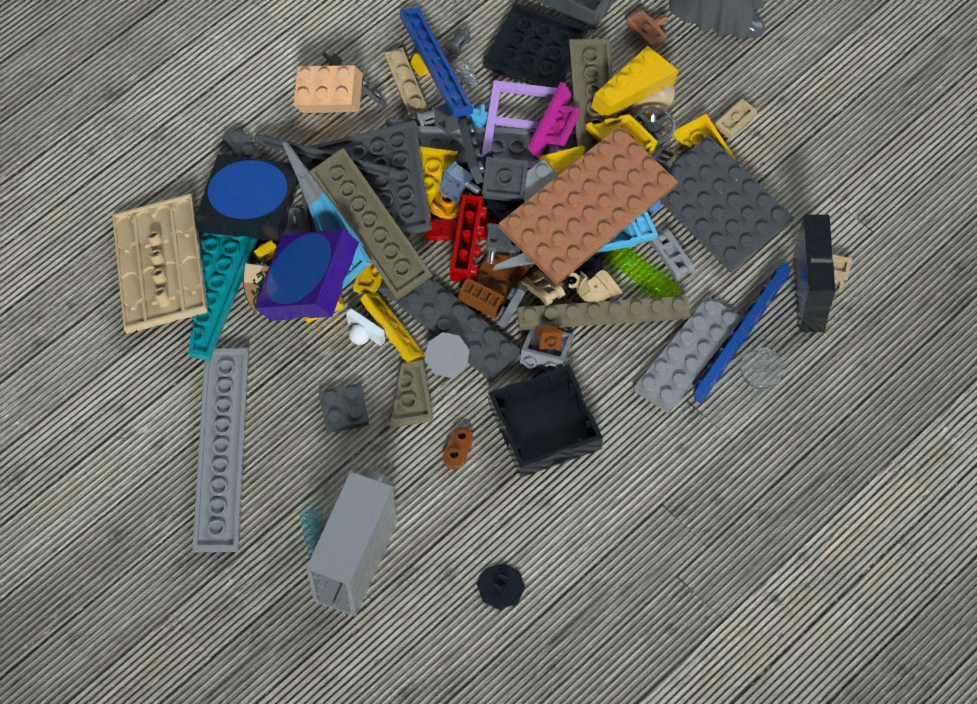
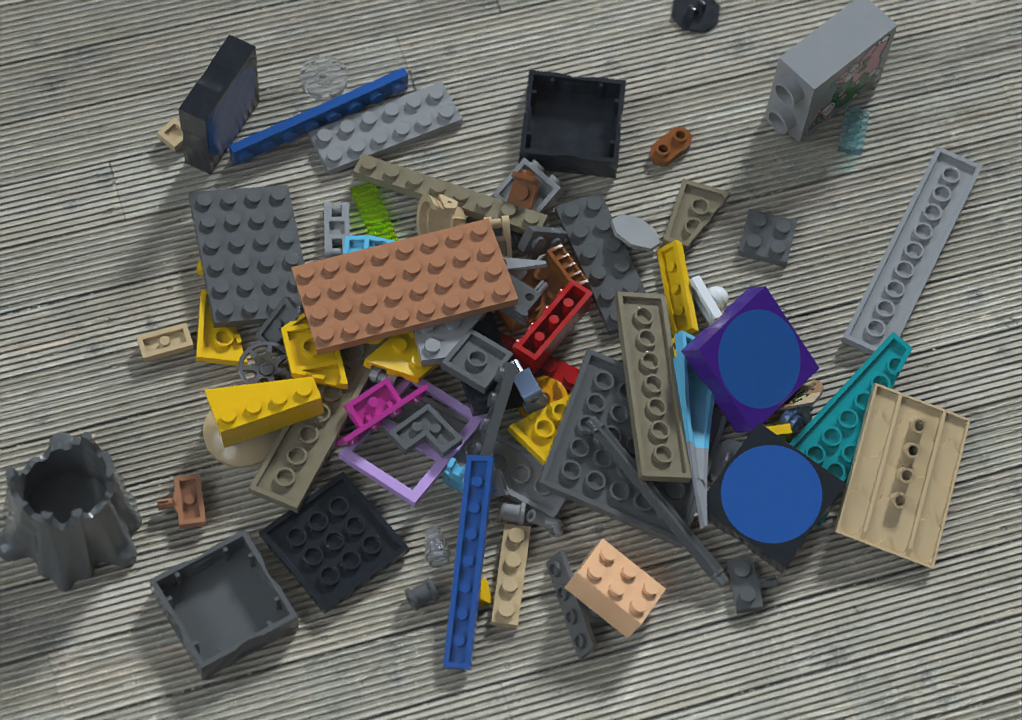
camera: 160 degrees left, 0 degrees up
(514, 128) = (425, 426): none -> dark grey plate

